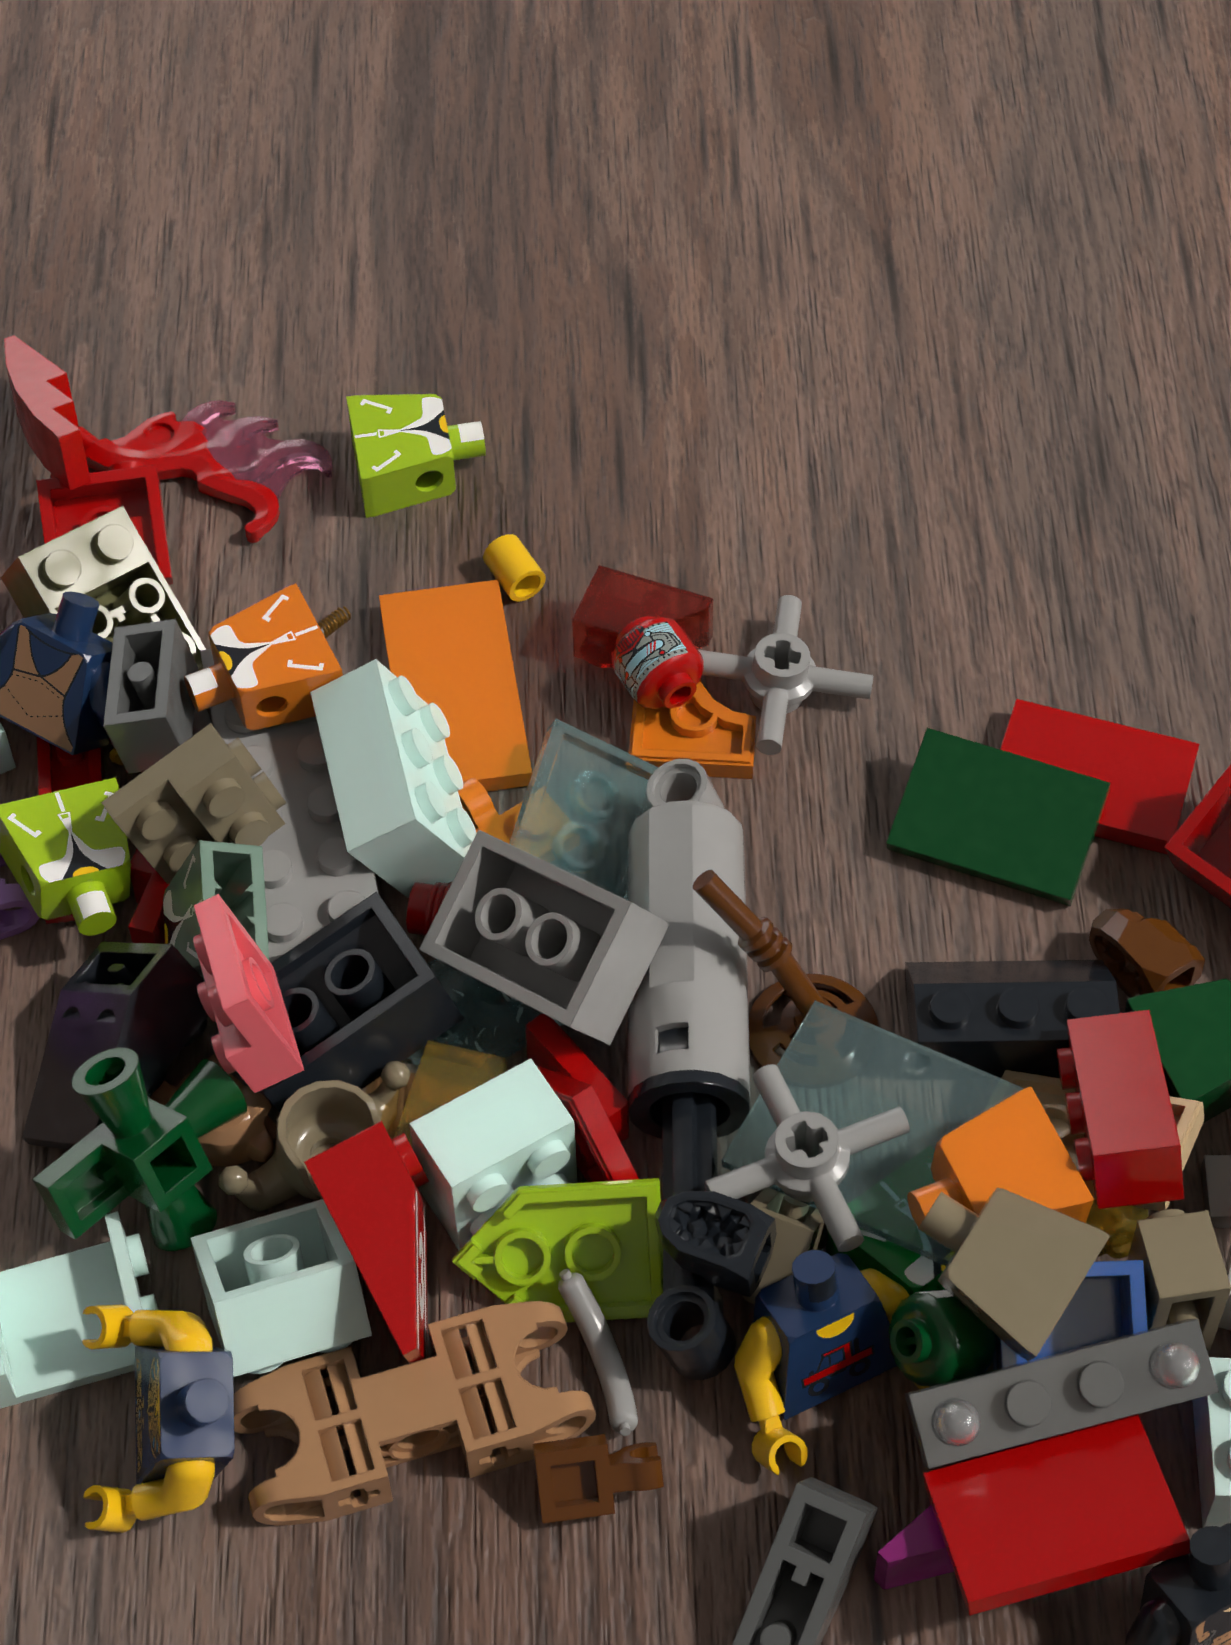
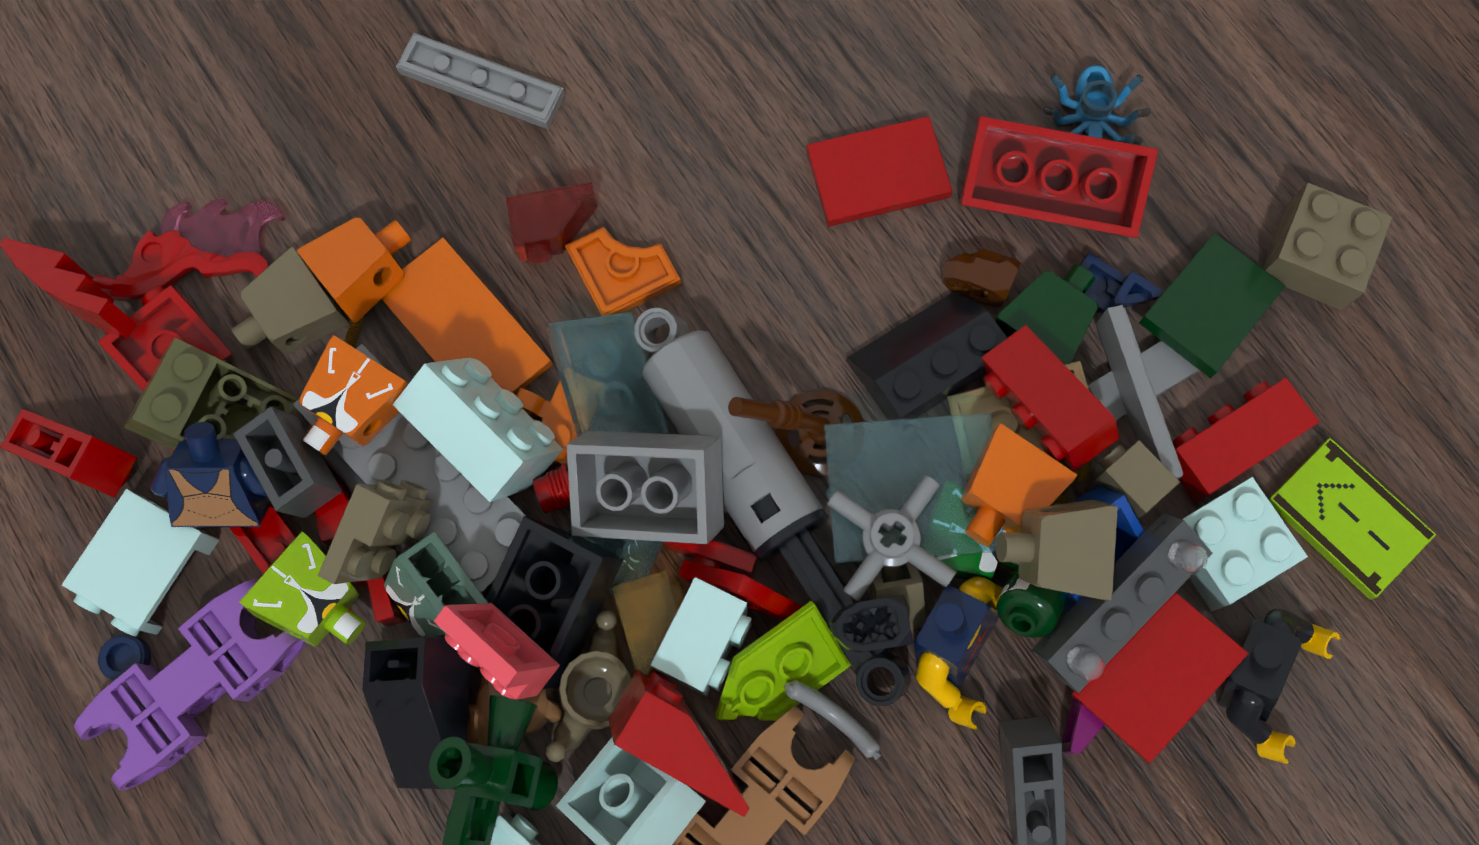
camera: 30 degrees left, 20 degrees up
(265, 553) = (288, 307): none -> dark tan torso
(378, 552) = (356, 263): none -> orange torso
(407, 449) = (324, 175): lime torso -> none
(514, 567) = (446, 222): yellow hinge -> none
(580, 1475) = (874, 798): reddish brown plate -> none
(657, 662) = (586, 247): head -> none
(662, 444) = (481, 81): none -> light grey tile
(783, 674) = (647, 214): light grey bar -> none
(998, 816) = (845, 231): dark green tile -> none

